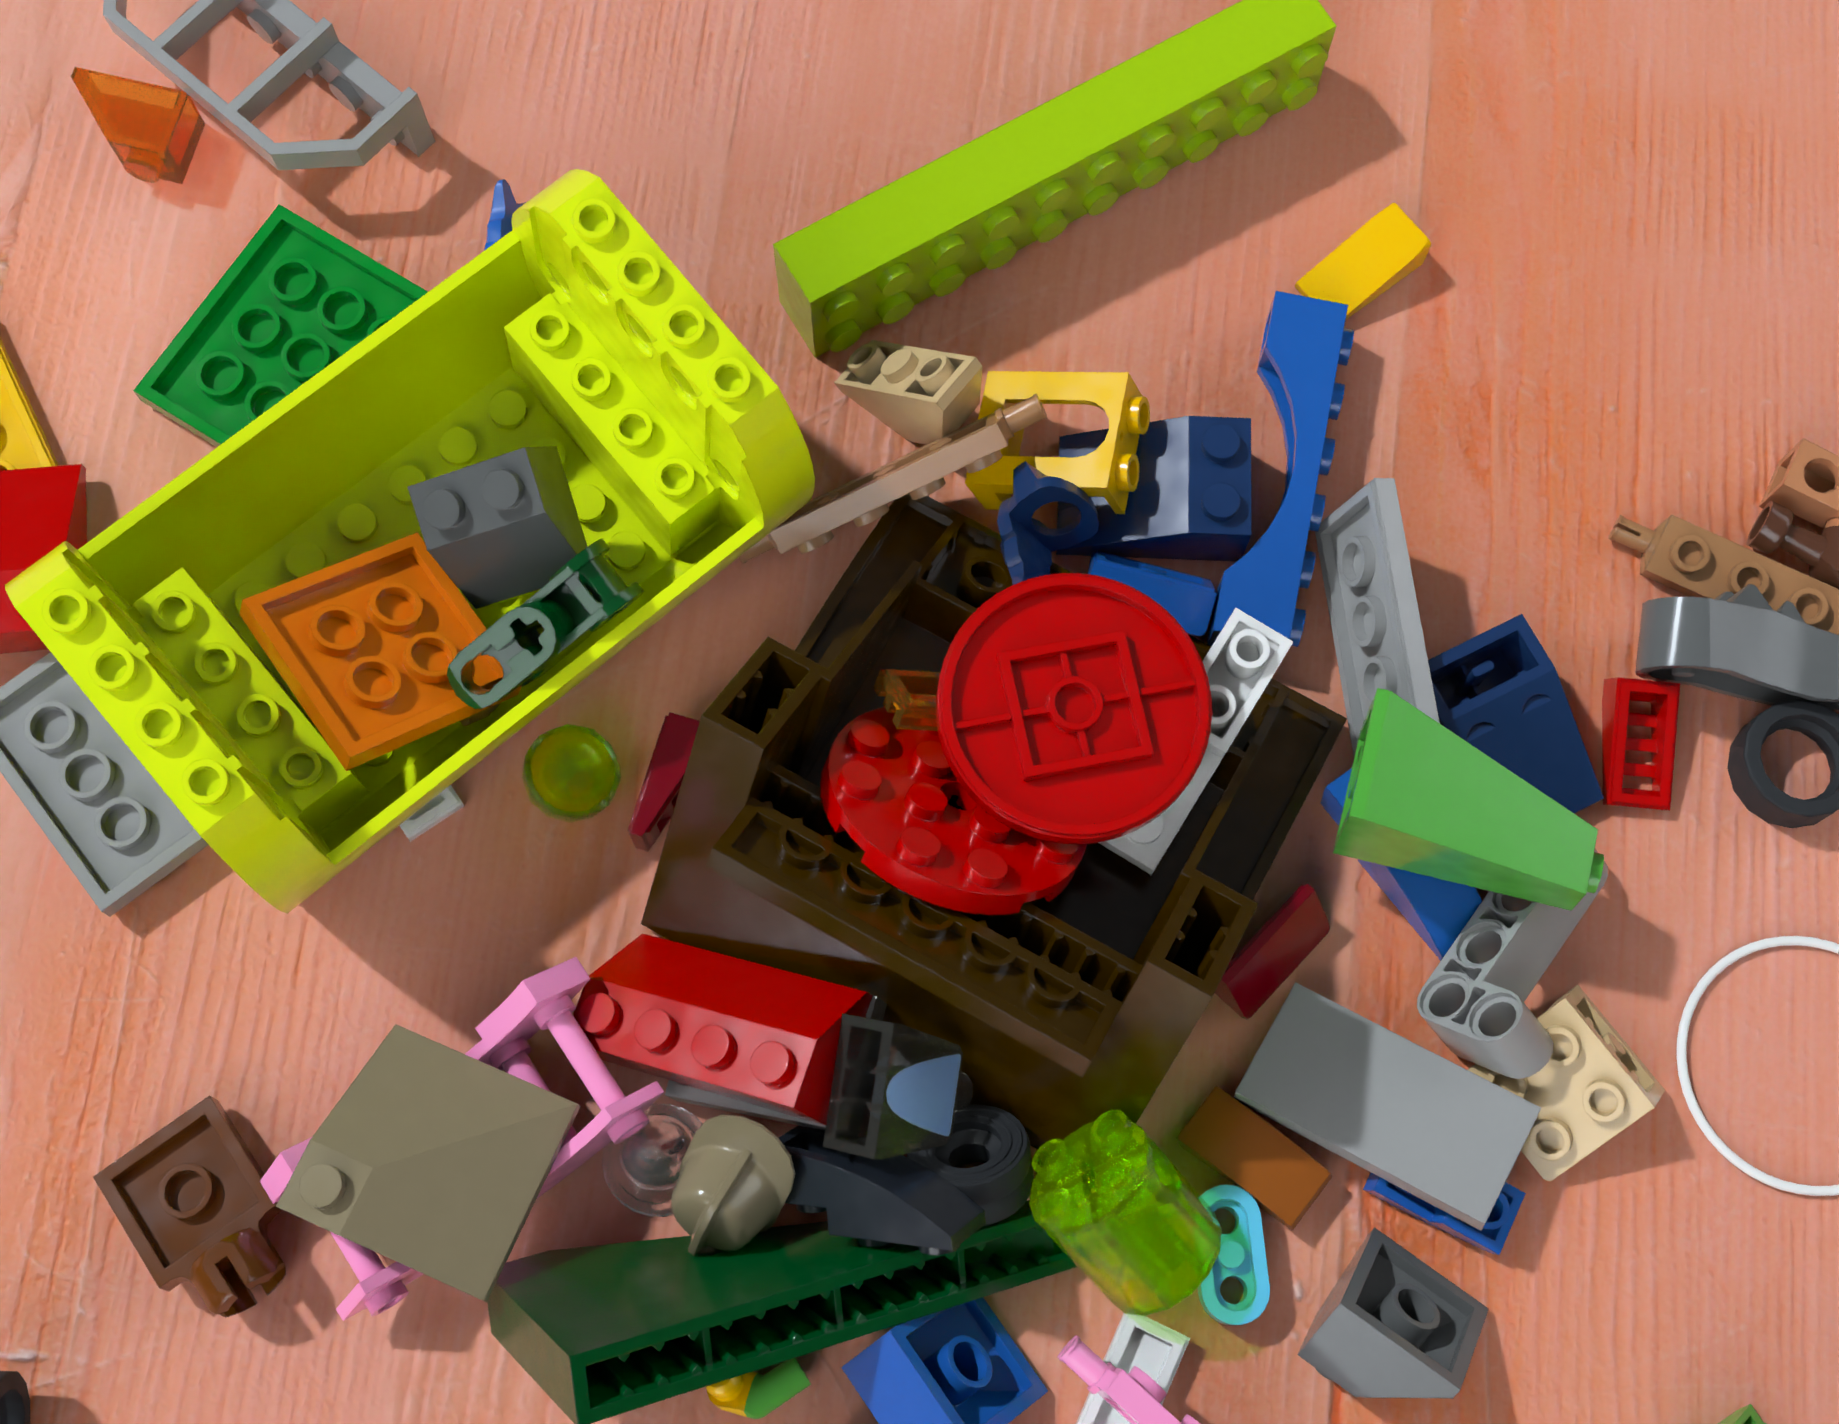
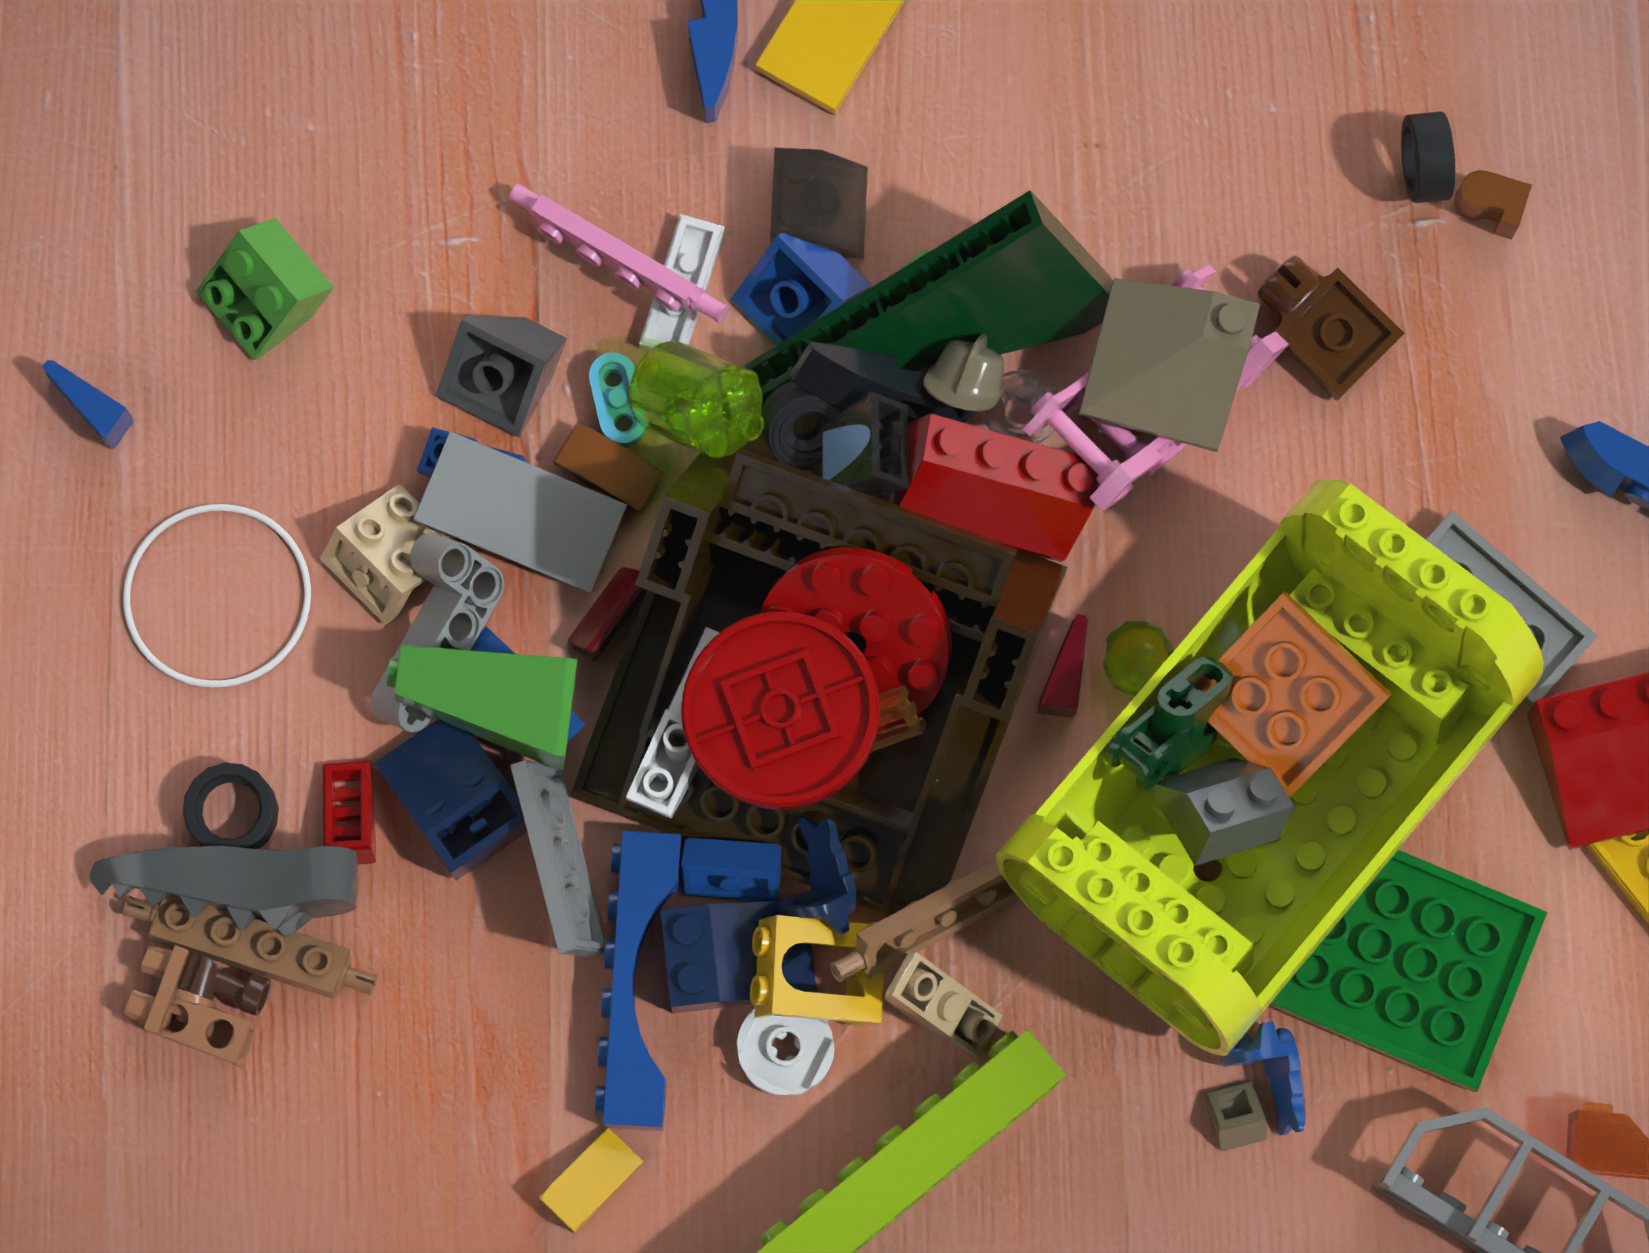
camera: 170 degrees right, 5 degrees up
(1104, 346) = (795, 1074): none -> white plate

